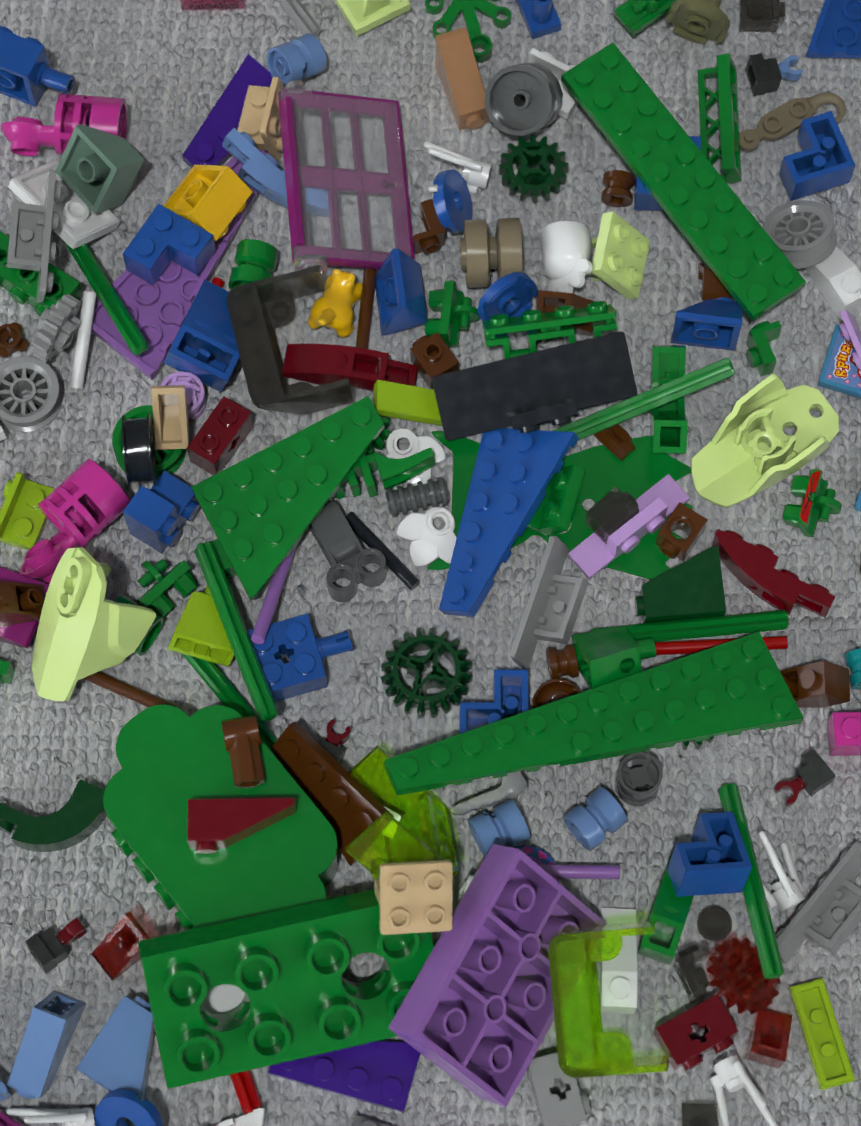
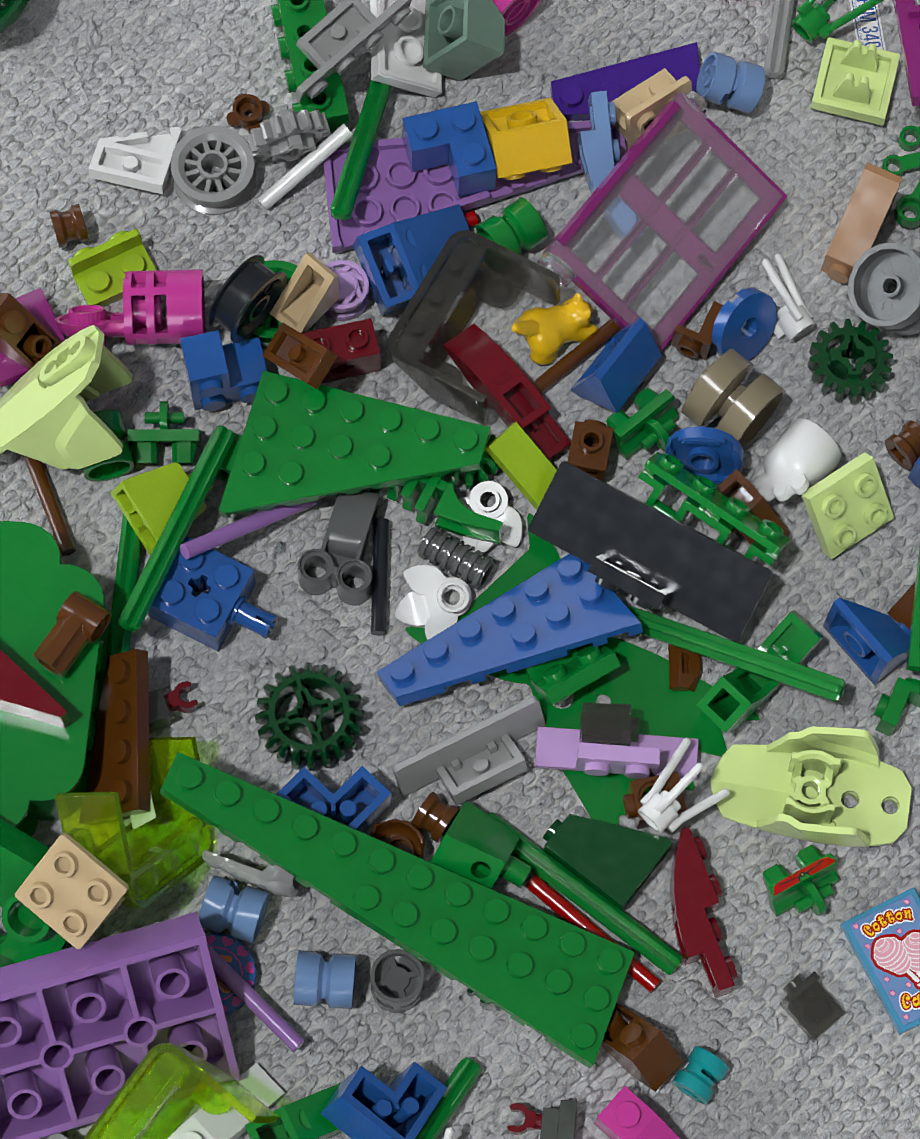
camera: 40 degrees right, 0 degrees up
(208, 455) = (299, 355): none -> reddish brown slope
(695, 532) = (661, 809): none -> white plant

